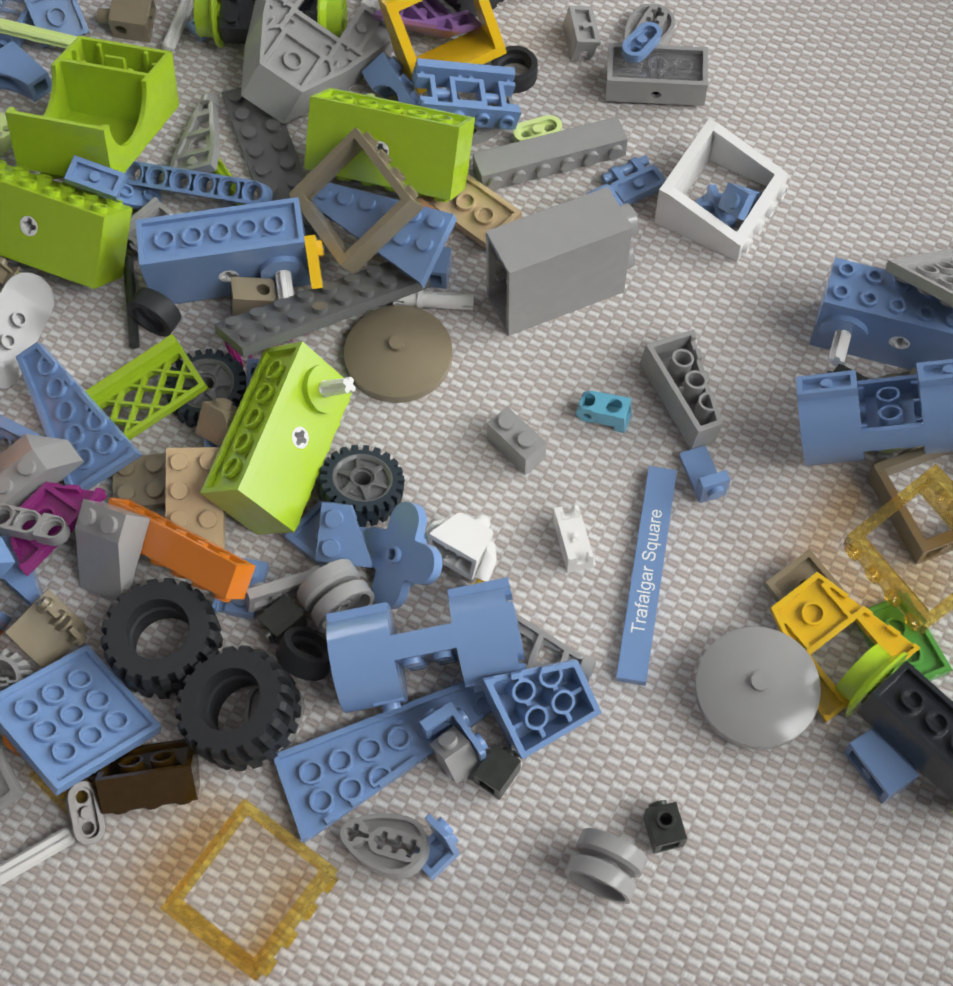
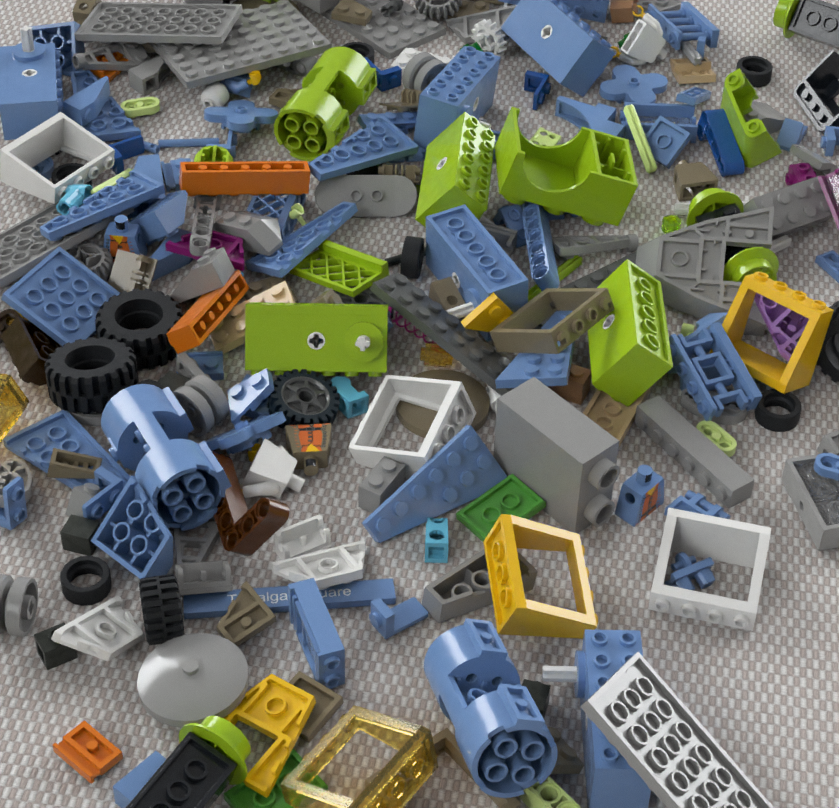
camera: 70 degrees right, 20 degrees down
(15, 410) = (297, 212): none -> yellowish green hand
(95, 178) = (492, 176): medium blue tile -> none
(191, 60) = (670, 223): none -> clear neon green bush
(323, 339) = (435, 356): none -> clear yellow brick
(364, 435) = (351, 401): none -> medium azure leg
(381, 778) = (66, 465): none -> dark tan slope
(424, 338) = (444, 396): none -> white windscreen
(434, 493) = (309, 446): none -> dark tan torso
(534, 364) = (446, 481): none -> medium blue wing
(547, 592) = (244, 529): none -> reddish brown beam
(571, 755) = (86, 595): none -> black tyre
(579, 342) = (506, 497): none -> bright green tile
(610, 649) = (203, 577): none -> light grey hinge
(621, 523) = (326, 566): none -> white wing
(659, 697) = (161, 608): none -> black tyre
(663, 770) = (101, 631): none -> white wing
(672, 620) = (245, 617): none -> dark tan wing
(713, 347) = (527, 617): none -> yellow windscreen
(726, 551) = (316, 633): none -> medium blue door
(738, 200) = (700, 576): medium blue bracket -> none
(820, 817) = (88, 751): none -> orange plate

